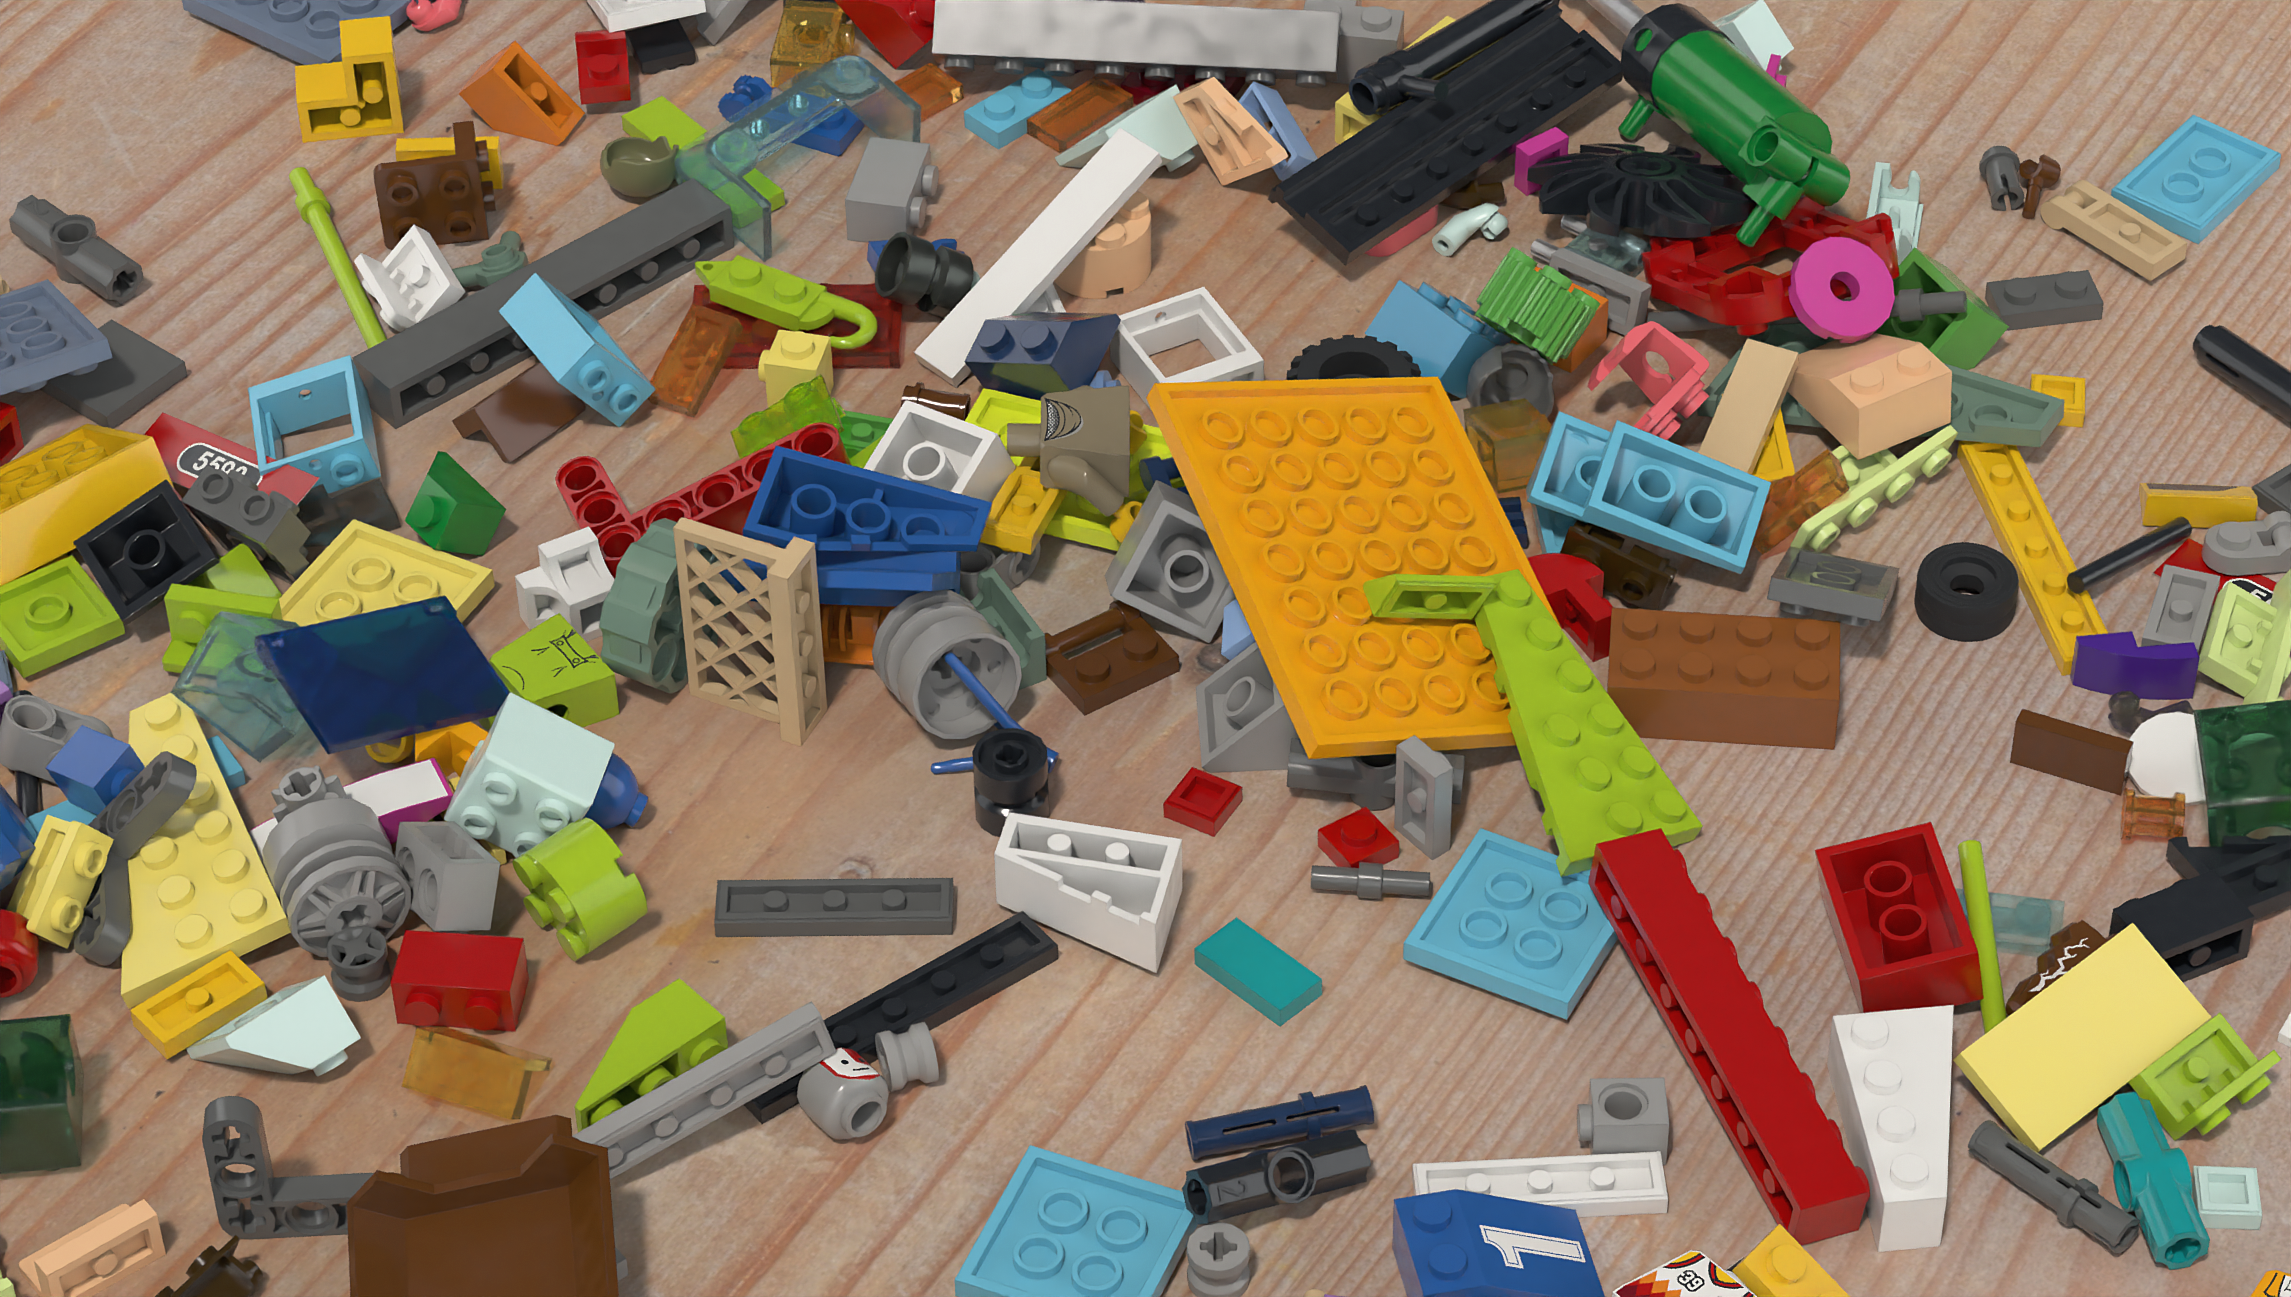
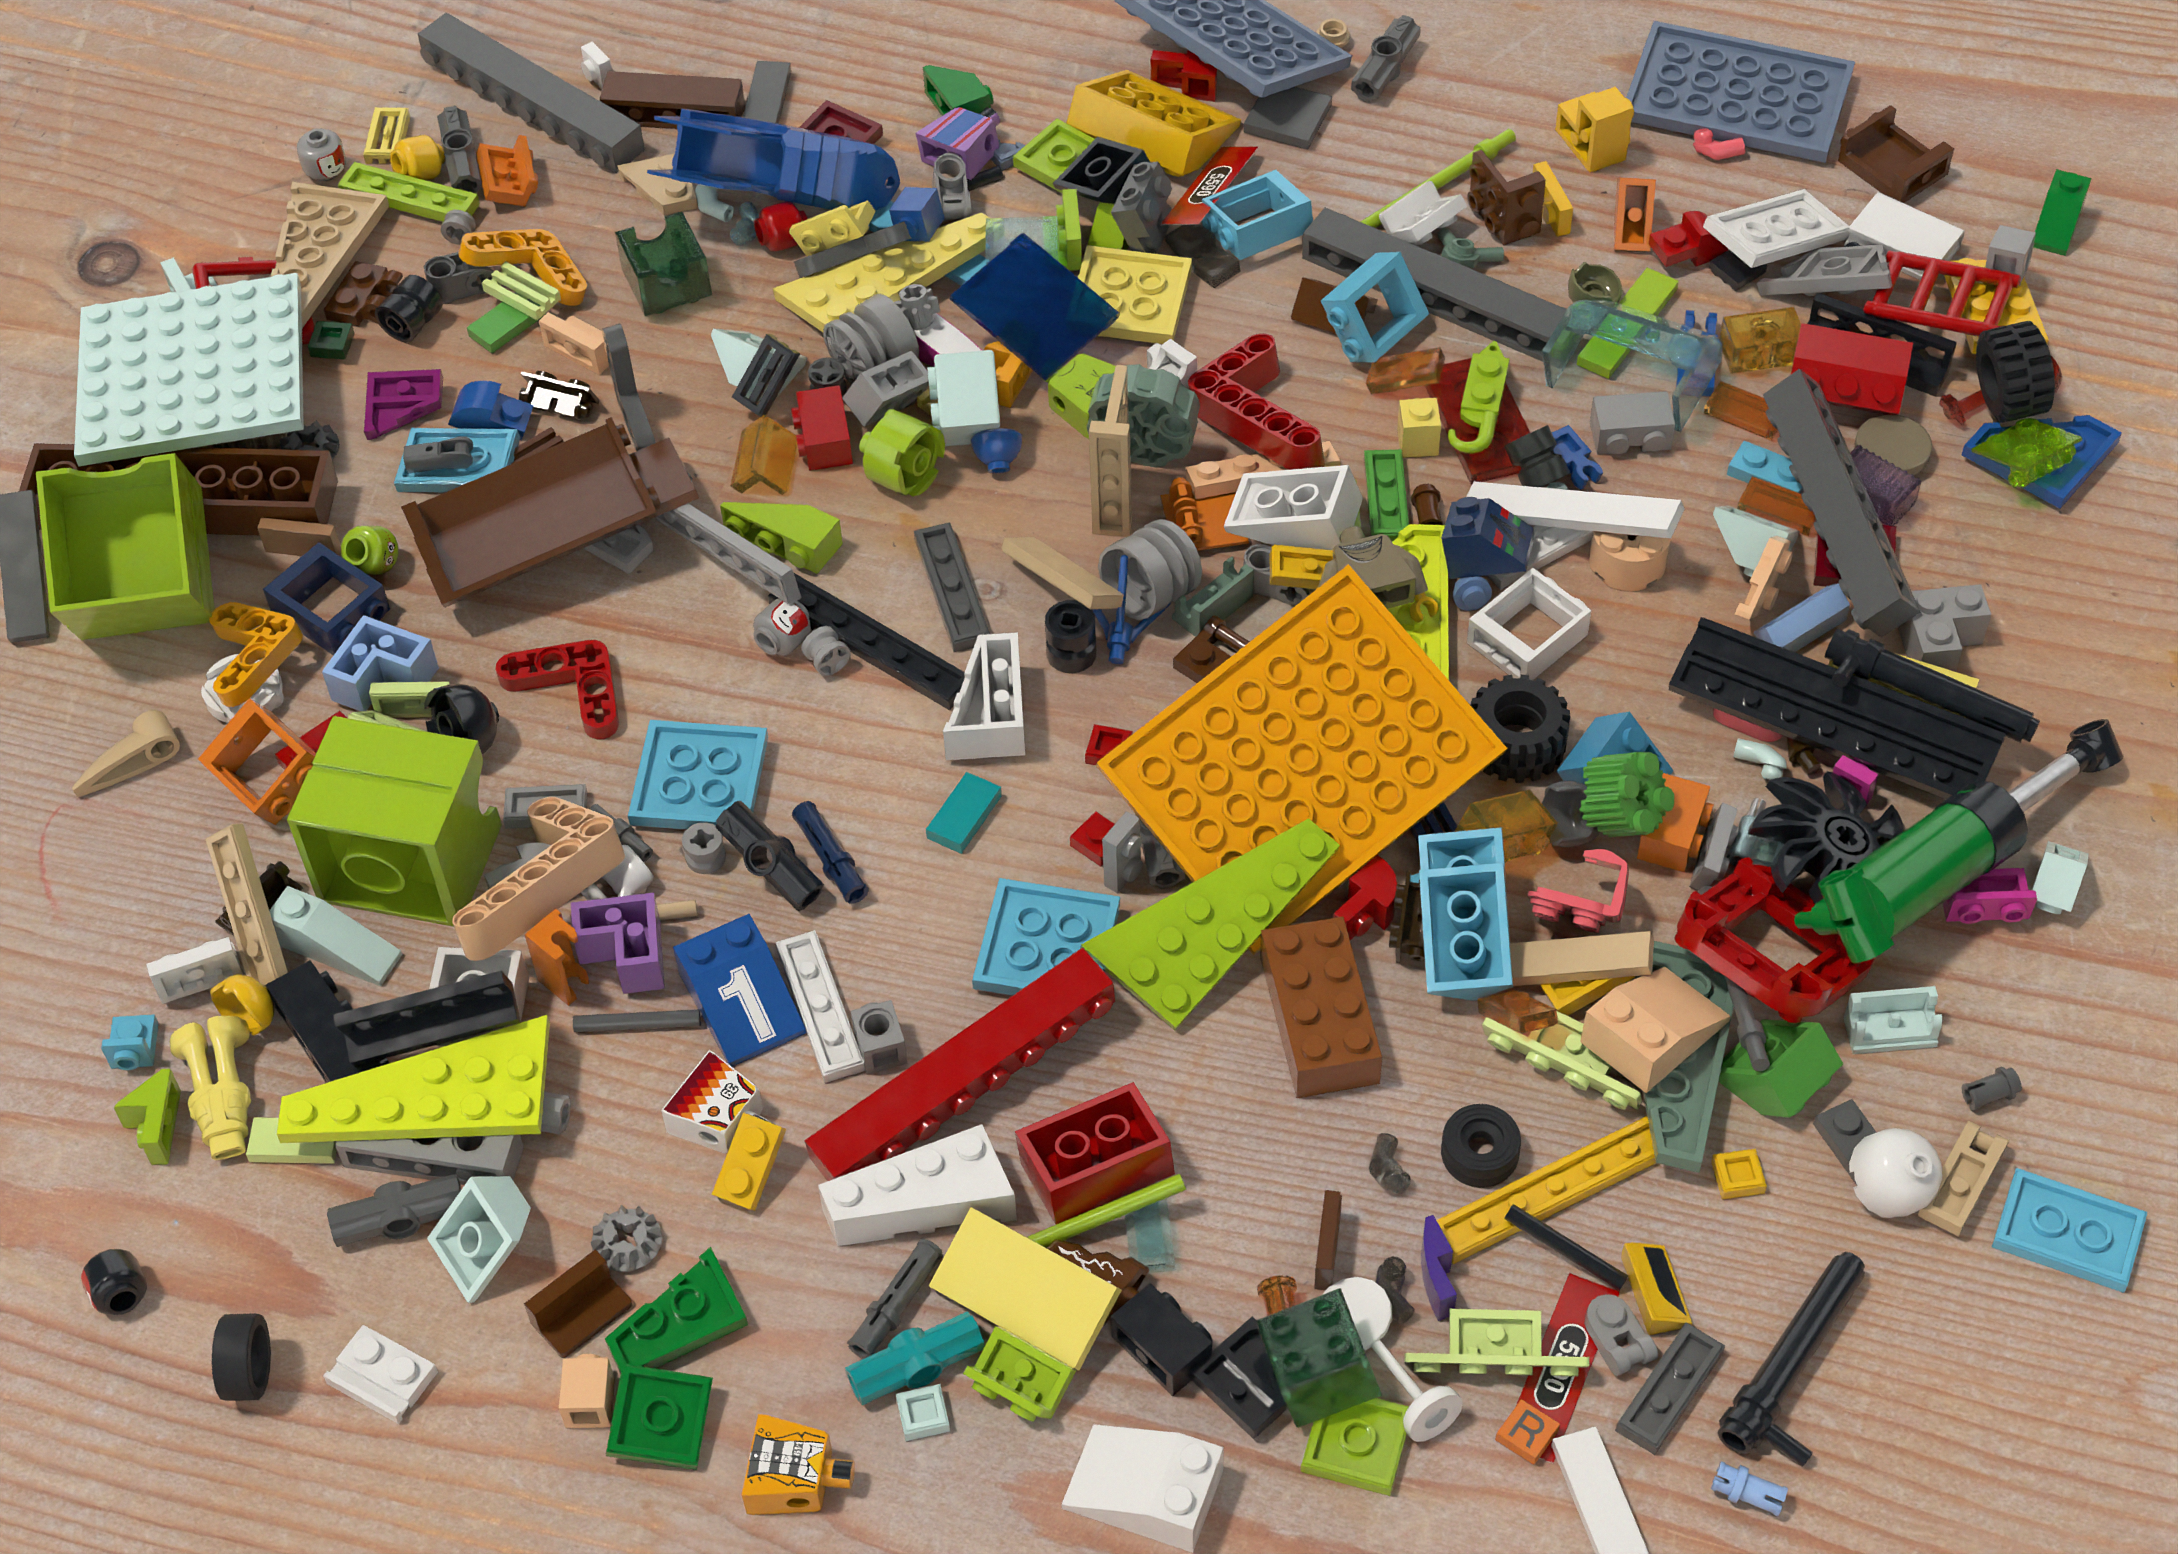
camera: 75 degrees right, 10 degrees up
(198, 1004) = (767, 317): yellow plate -> none
(329, 1010) = (777, 381): none -> black tile
(454, 509) = (1215, 295): green slope -> none
(800, 407) = (1354, 433): clear neon green hinge -> none
(859, 509) = (1233, 469): blue wedge -> none
(874, 576) = (1198, 478): blue fence -> none
(900, 760) = (1062, 573): none -> tan tile
(1370, 880) = (1062, 852): dark grey bar -> none
(1427, 595) = (1273, 790): lime slope -> none
(1834, 584) = (1429, 1049): dark grey plate -> none
(1863, 274) = (1699, 969): dark pink tile -> none
(1969, 685) = (1384, 1166): none -> clear smoke arm
(2038, 176) = (2009, 1109): reddish brown hand -> none
(2111, 257) = (1895, 1172): none -> white cylinder
(2181, 607) = (1512, 1289): light grey plate -> none

